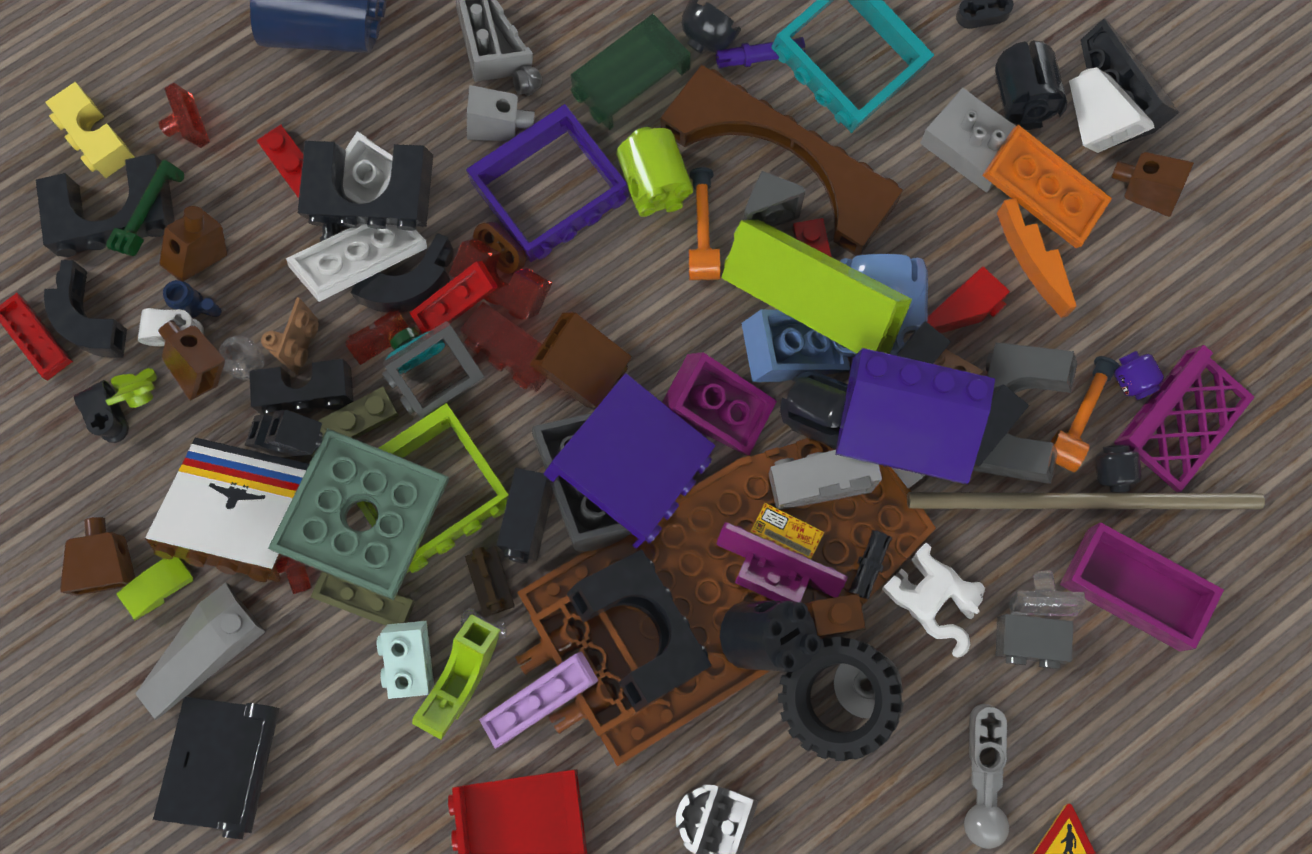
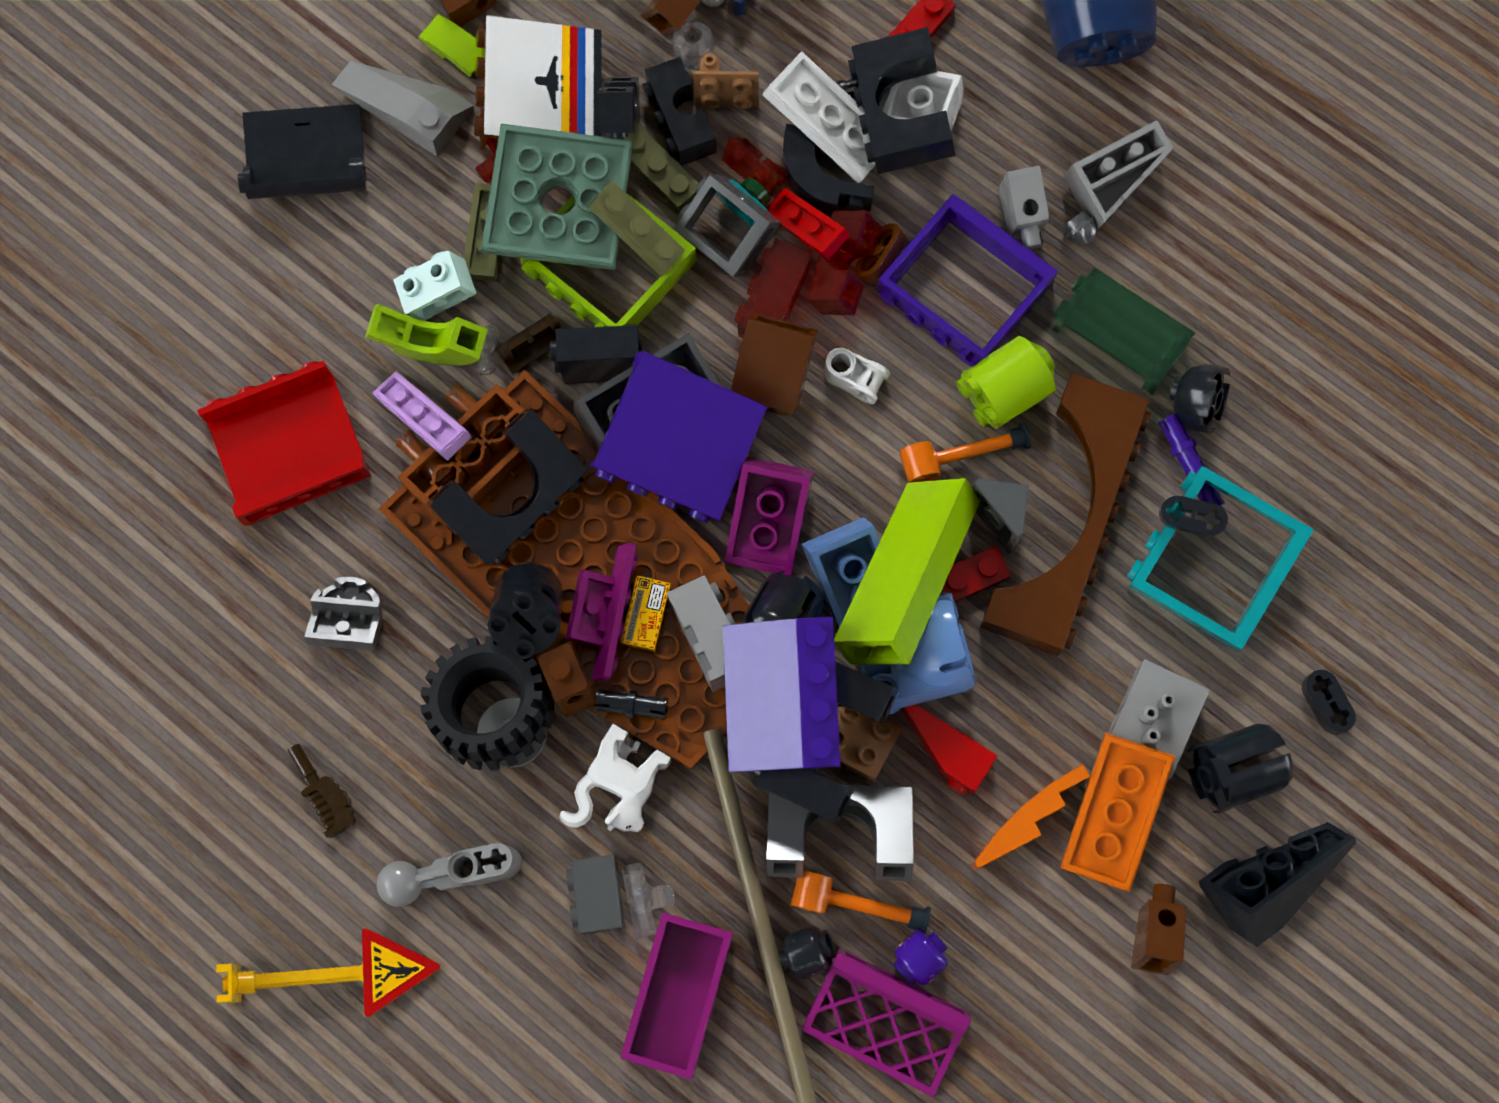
camera: 75 degrees right, 0 degrees up
(415, 447) = (636, 228): none -> olive plate
(611, 293) = (857, 376): none -> white piece
(814, 51) = (1191, 524): none -> black beam
(1105, 111) = (1234, 859): white slope -> none

